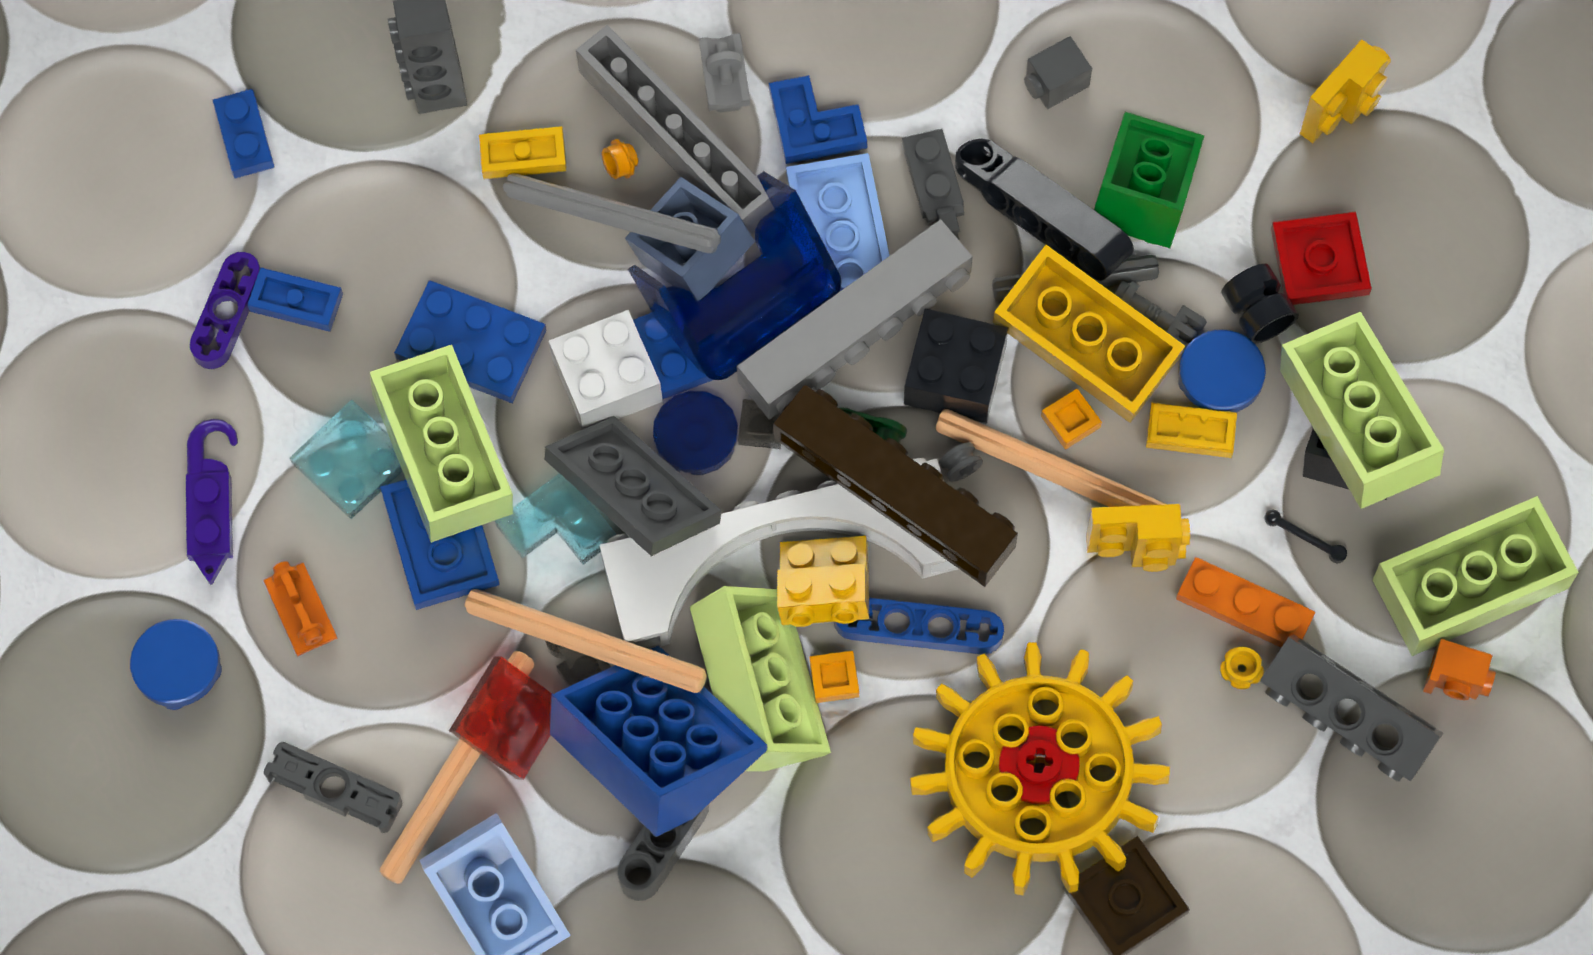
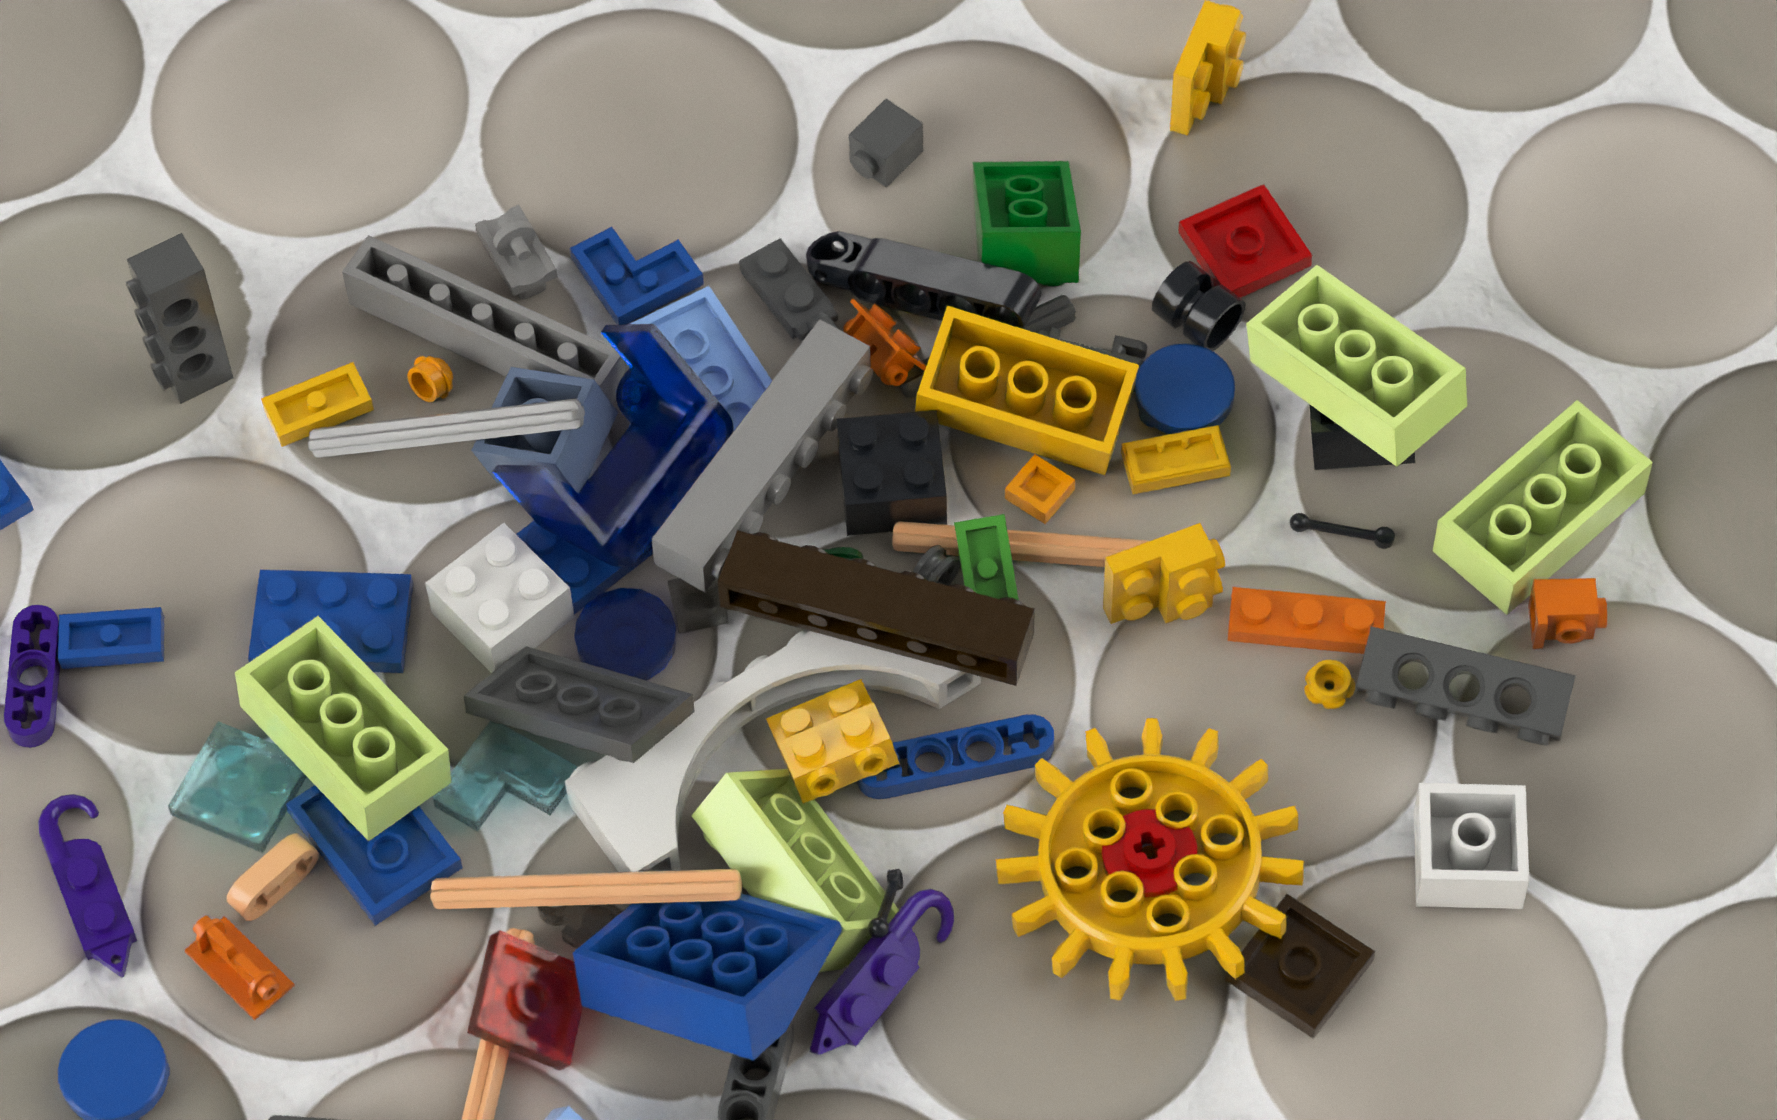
camera: 20 degrees left, 10 degrees down
(350, 543) = (272, 876): none -> light nougat beam
(787, 789) = (876, 975): none -> dark purple plate
(799, 753) = (879, 926): none -> black hinge
(834, 676) = (882, 839): light orange plate -> none
(988, 237) = (890, 351): none -> orange hinge
(1002, 473) = (986, 556): none -> bright green plate
(1300, 848) = (1471, 845): none -> white brick

